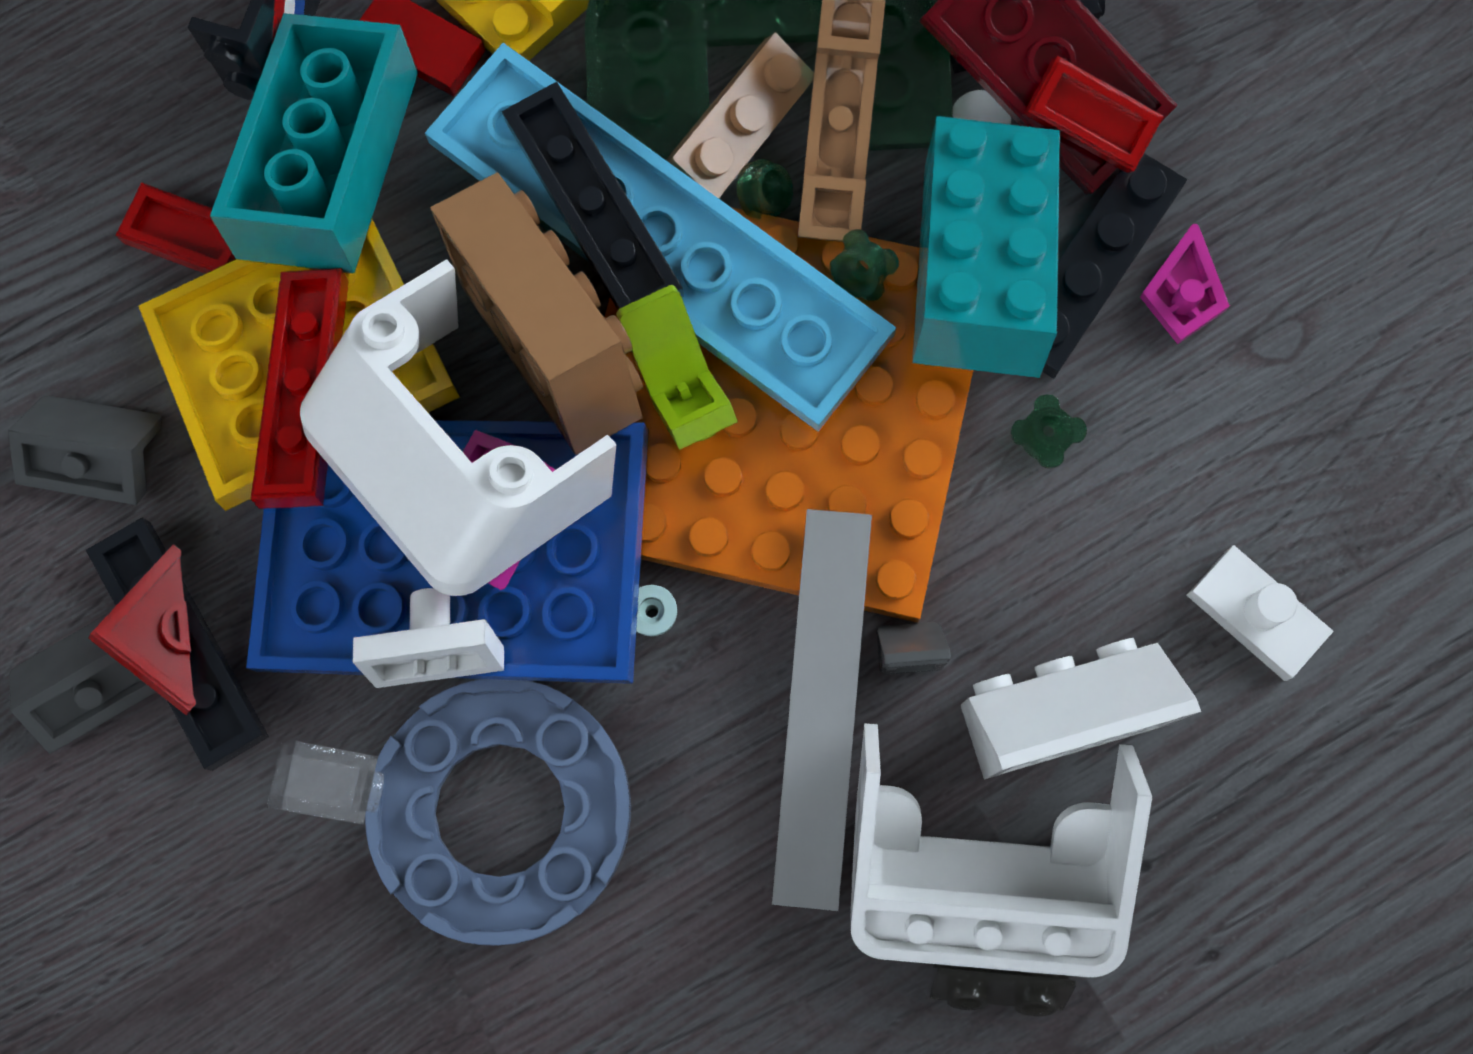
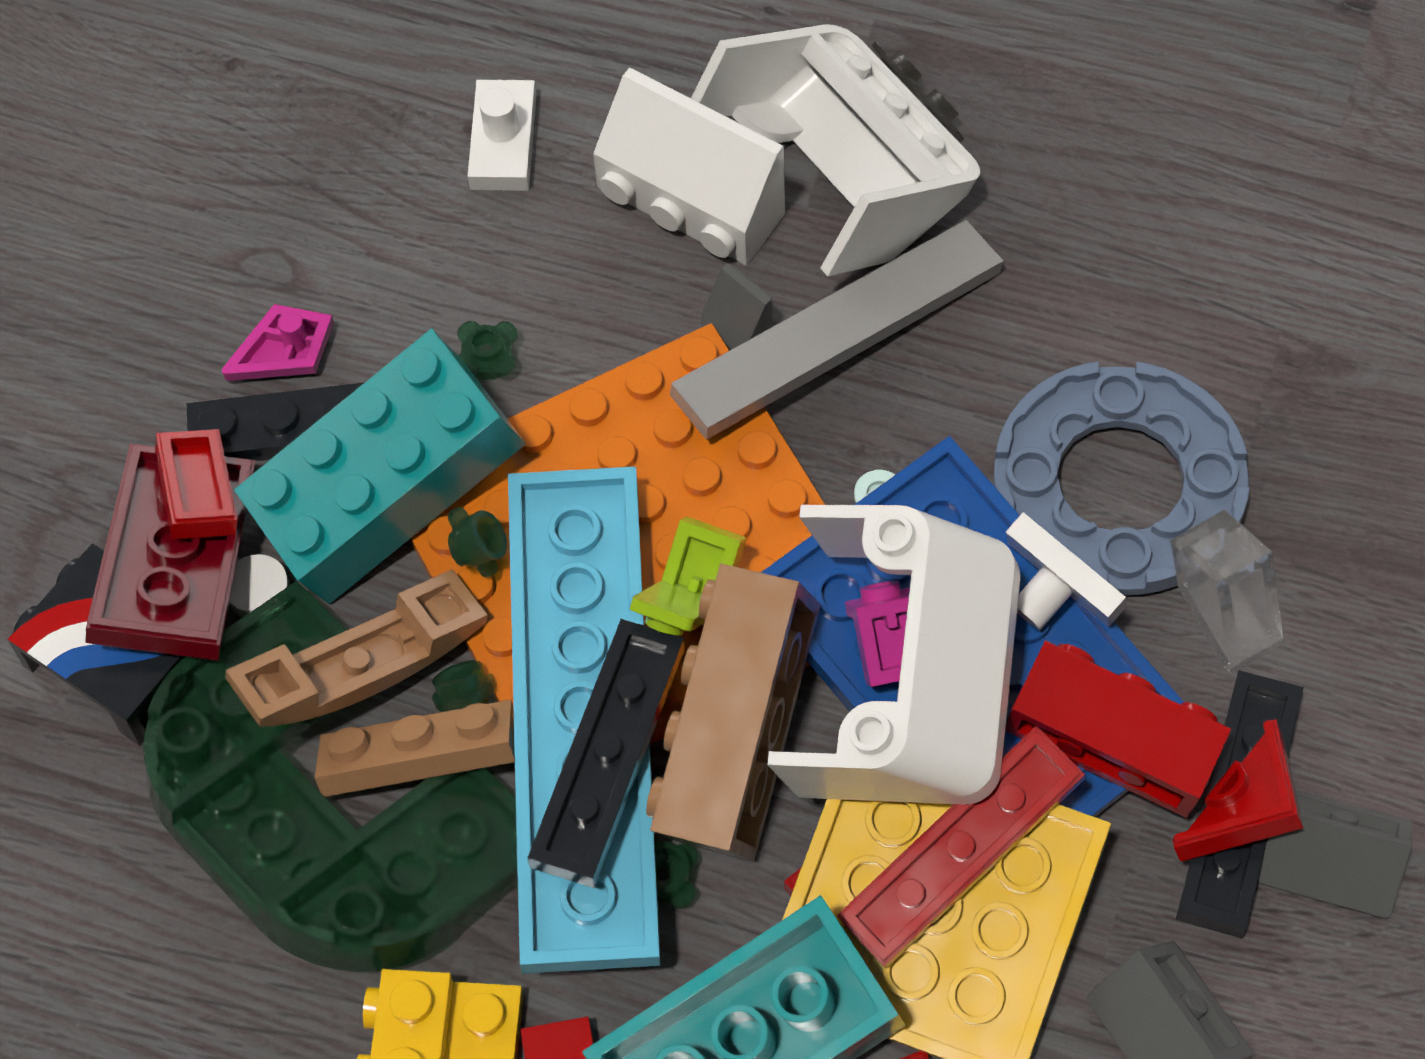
camera: 130 degrees left, 15 degrees down
(285, 583) = (1119, 727): none -> red brick

